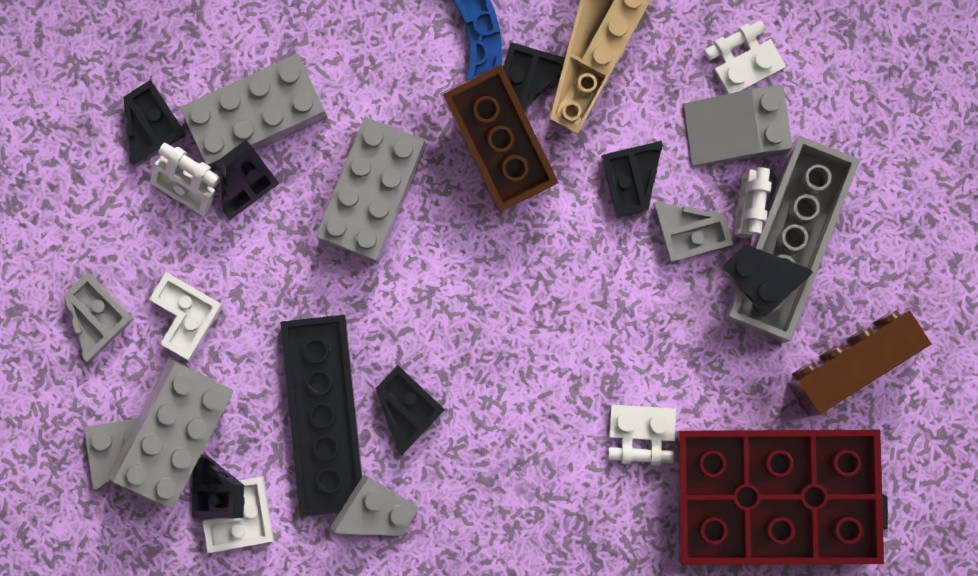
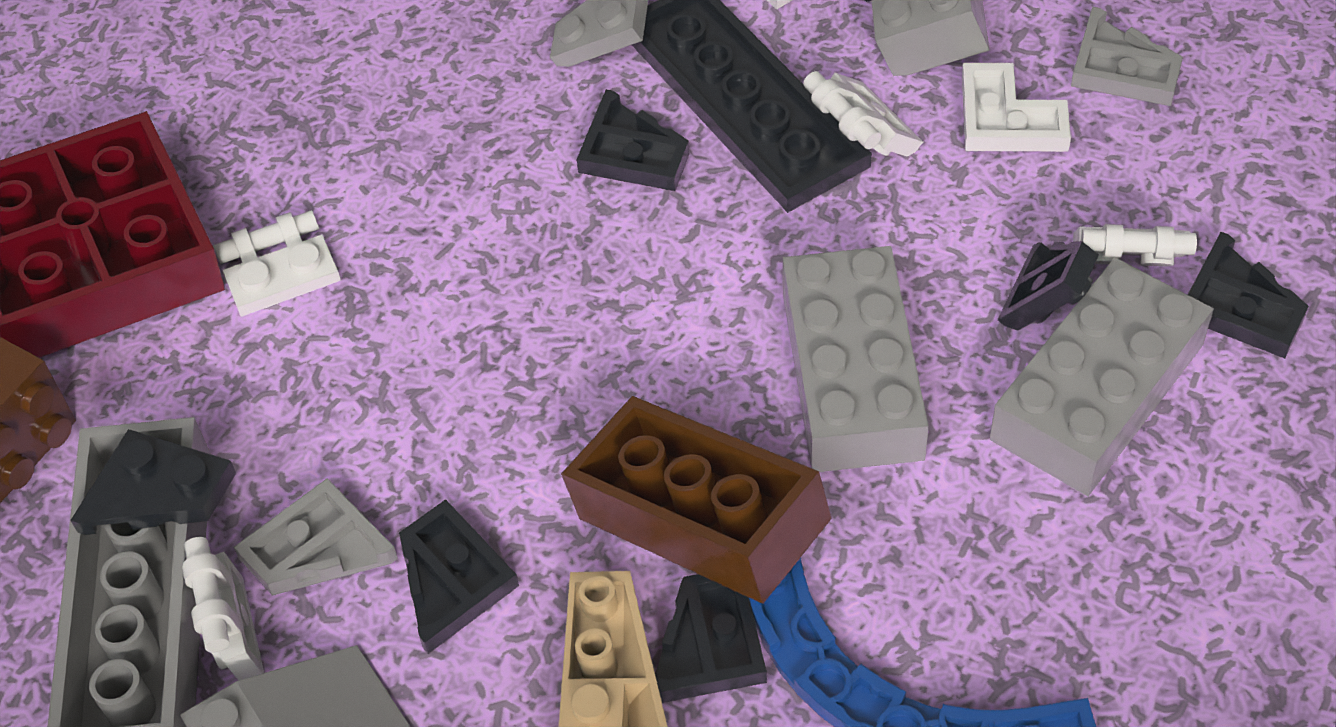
camera: 160 degrees right, 30 degrees down
(262, 352) = (861, 114): none -> white plate

